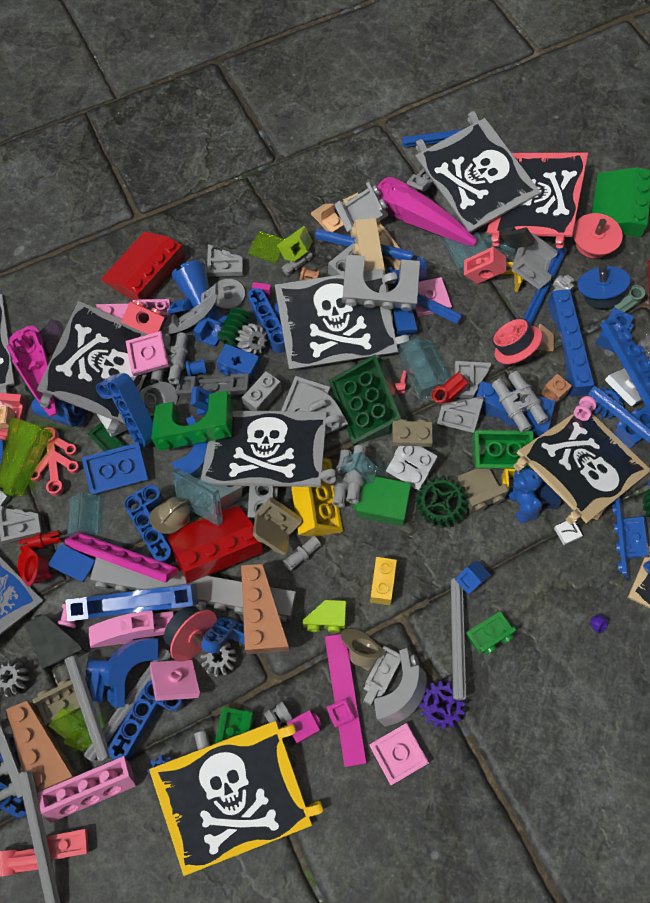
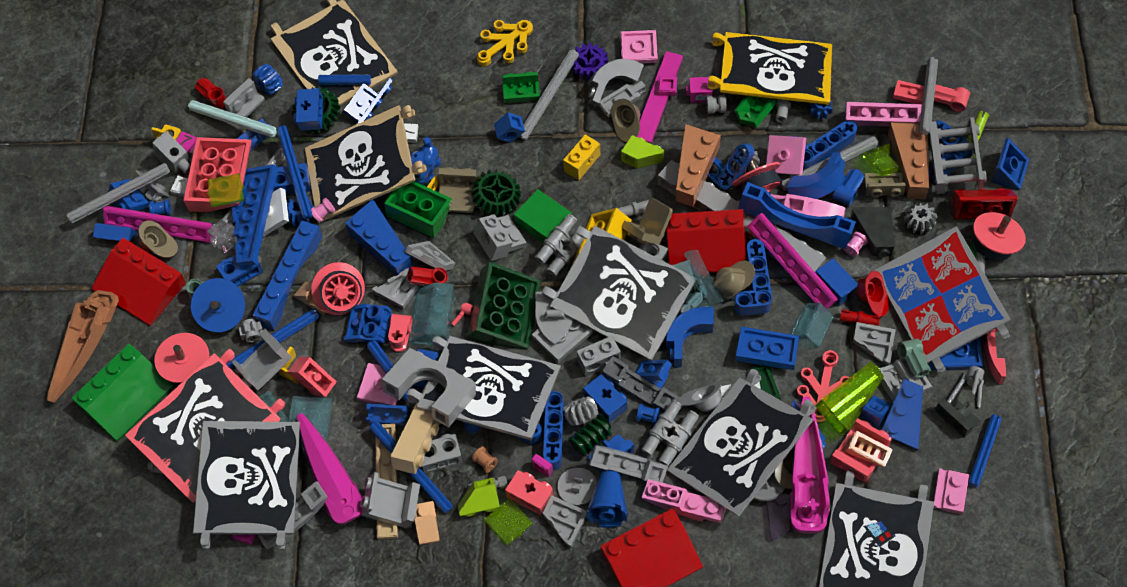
camera: 150 degrees left, 5 degrees down
(87, 708) = (862, 165): light grey axle -> none
(130, 406) = (731, 387): blue beam -> none
(132, 314) = (678, 474): coral brick -> none
(147, 353) = (690, 436): bright pink plate -> none
(180, 306) = (635, 480): blue slope -> none
(213, 426) = (704, 347): green arch -> none
(260, 267) = (534, 501): none -> coral brick
(361, 464) = (547, 237): clear light blue bracket -> none
(411, 433) = (487, 245): dark tan bracket -> none
(428, 138) = (250, 569): blue axle -> none
(444, 340) = (399, 331): none -> coral piece
(471, 333) = (368, 324): none -> blue slope
(517, 238) = (265, 387): pearl dark grey slope -> none
(522, 394) = (387, 224): light grey pin -> none
(543, 690) = (505, 40): none -> yellow plant
(556, 389) = (334, 239): nougat brick -> none
(598, 623) = (434, 62): dark purple hinge -> none

